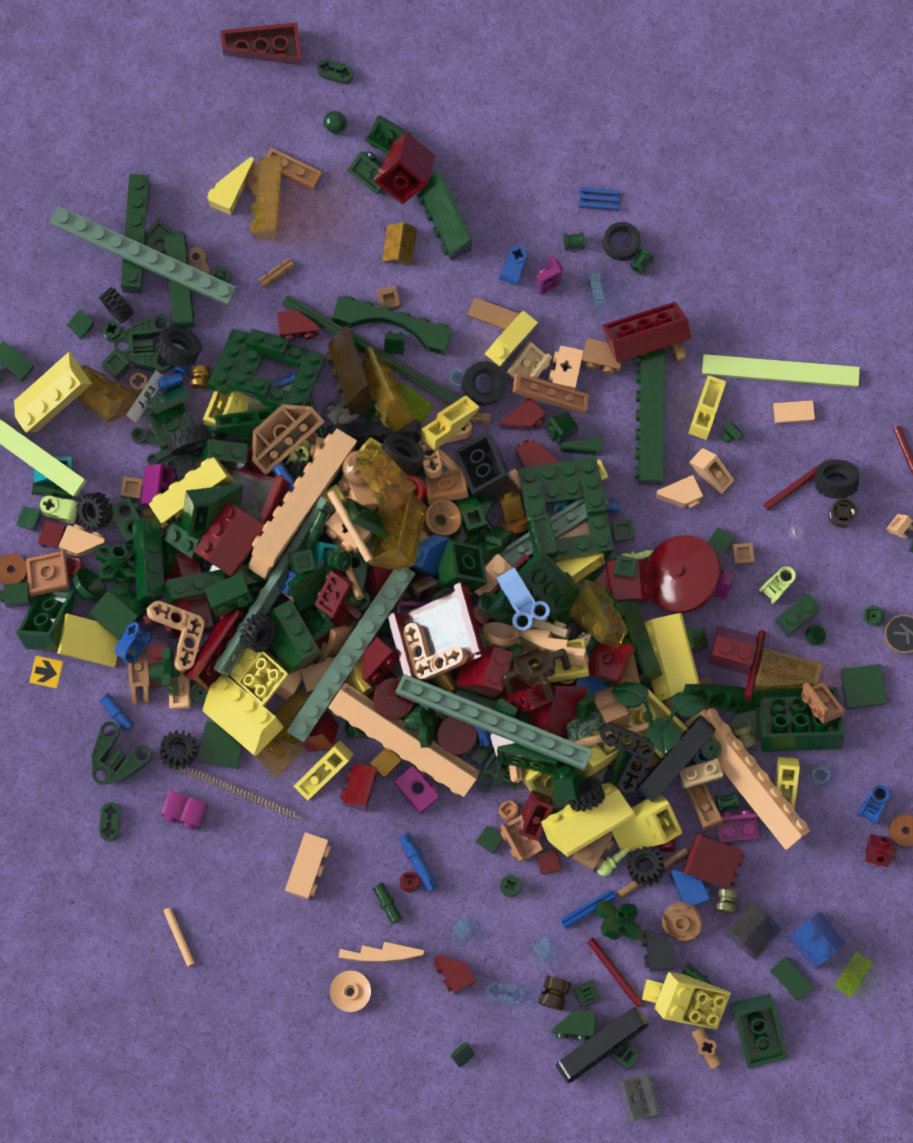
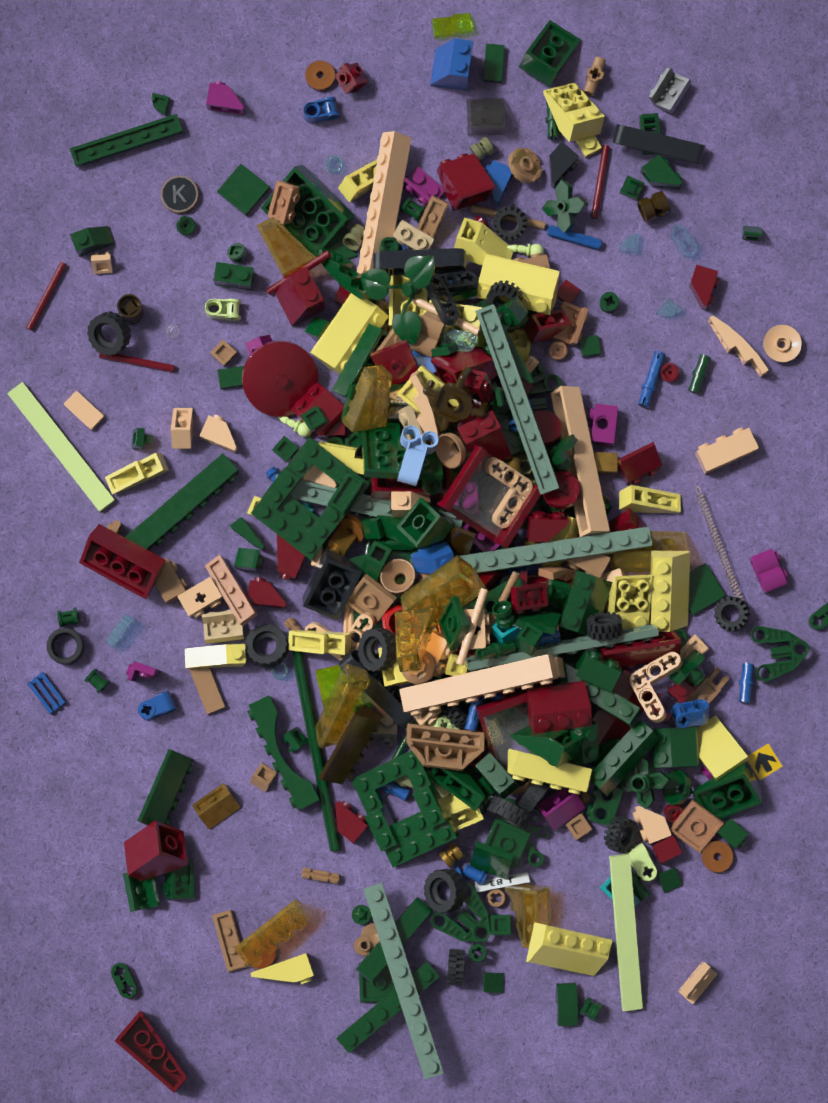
camera: 125 degrees left, 5 degrees up
(335, 122) = (165, 940): dark green piece -> none

